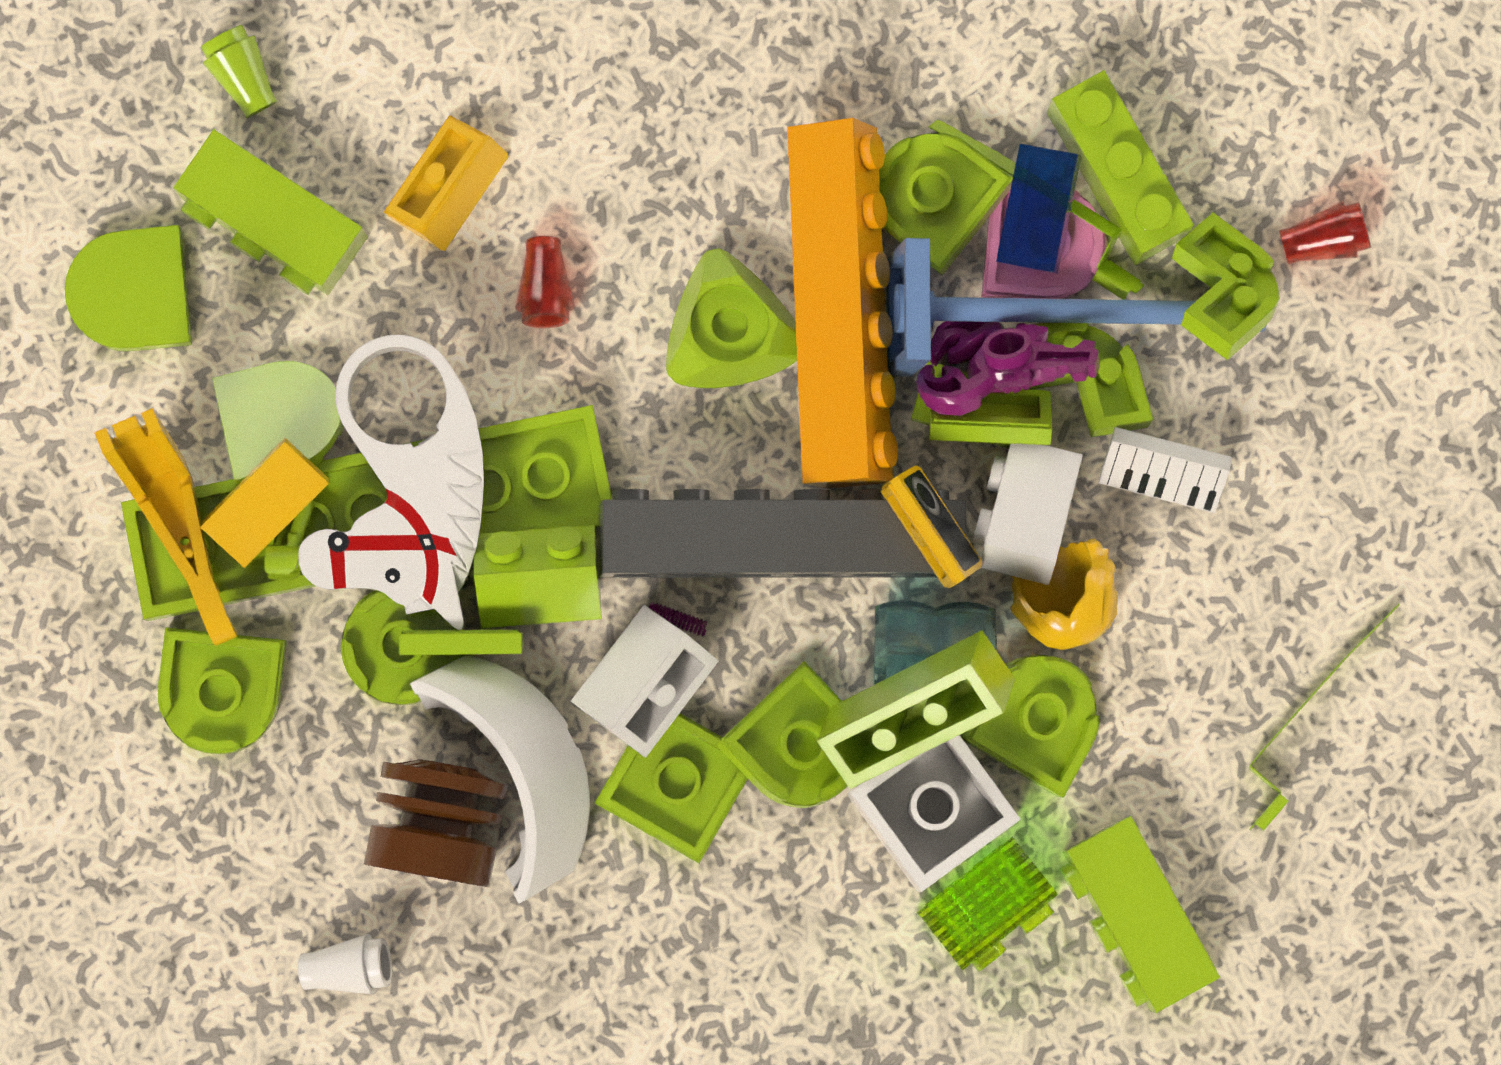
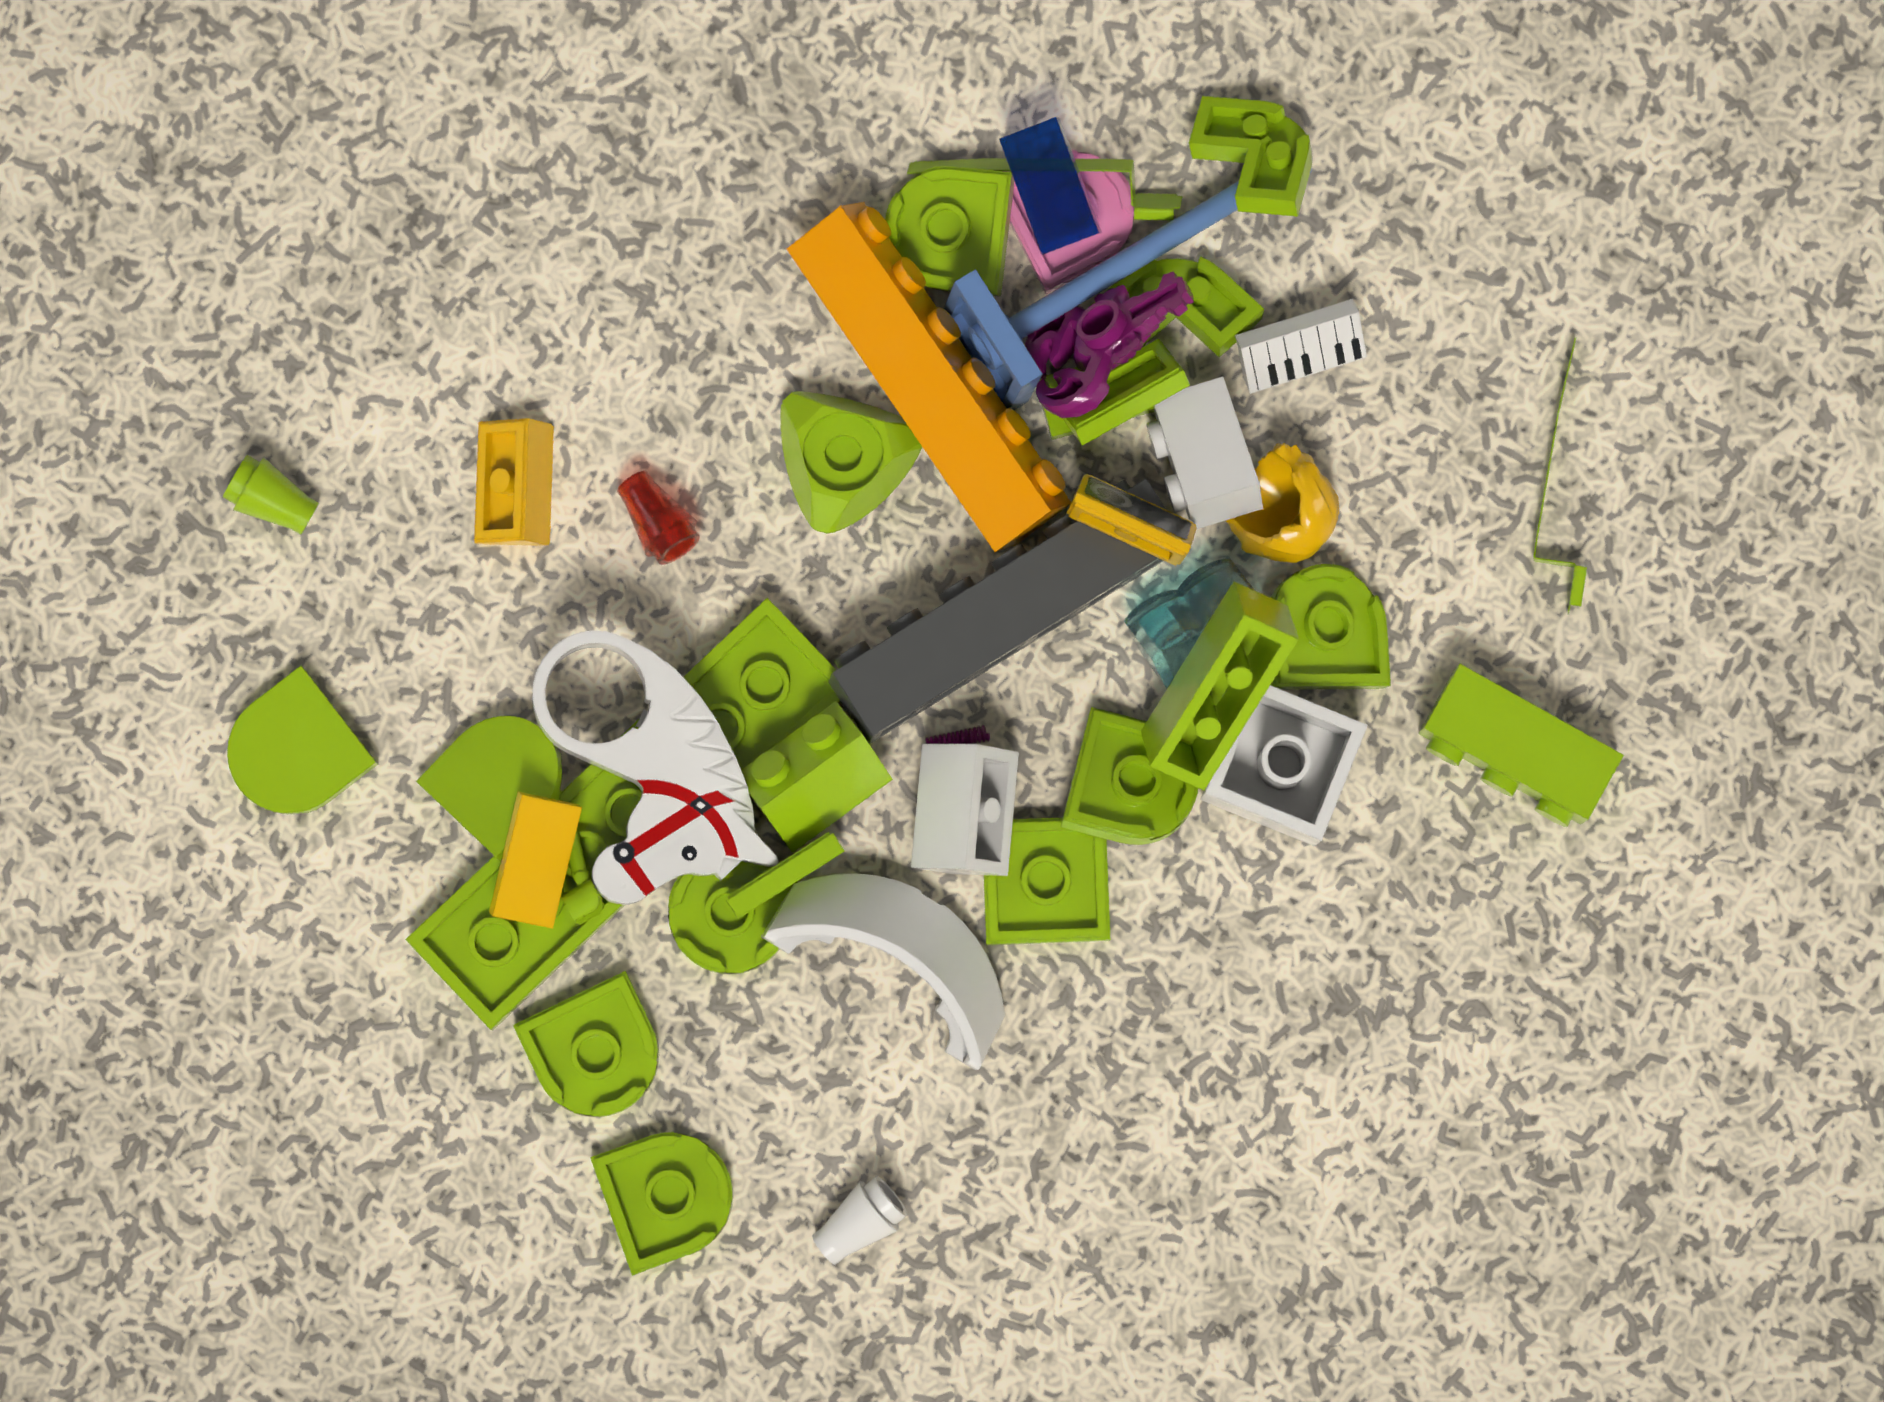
camera: 30 degrees left, 0 degrees up
(166, 494) = (445, 910): yellow hinge -> none
(200, 846) = (664, 1197): none -> lime tile
(268, 215) = (376, 607): lime brick -> none
(436, 823) = (861, 1045): reddish brown wheel -> none
(988, 905) = (1384, 819): clear neon green brick -> none
(1119, 167) = (1097, 106): lime brick -> none
(1328, 235) = (1314, 54): clear red cone -> none

